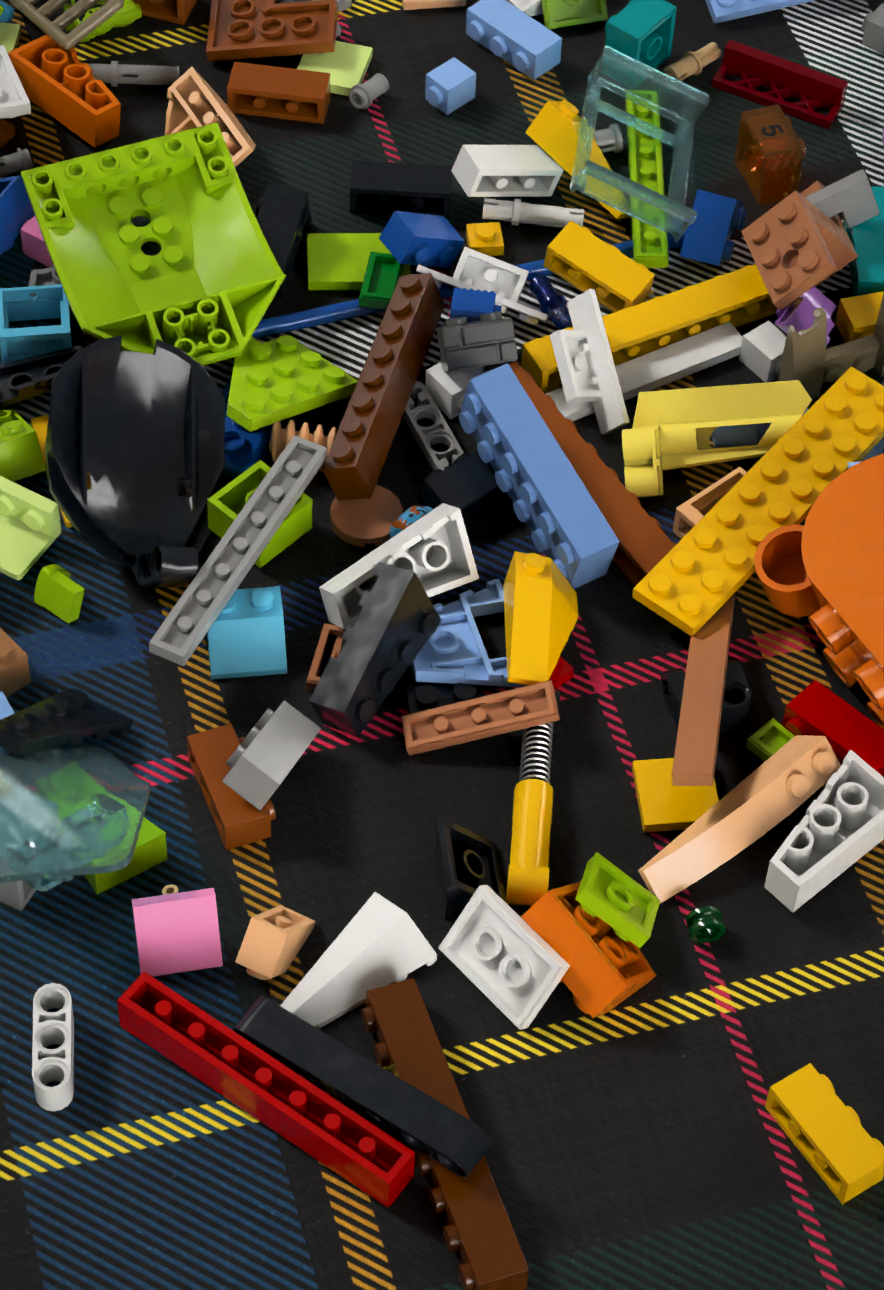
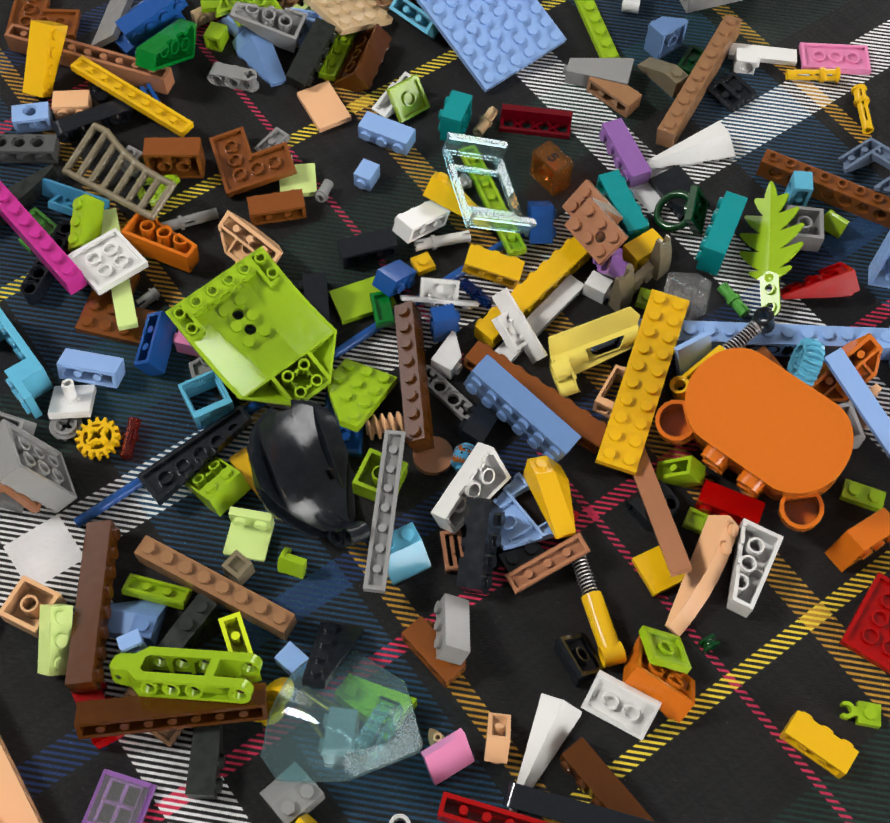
camera: 20 degrees left, 10 degrees up
(476, 343) = (455, 337): dark grey brick -> none
(782, 660) = (681, 471): none -> lime slope
(850, 196) = (609, 188): light grey tile -> none

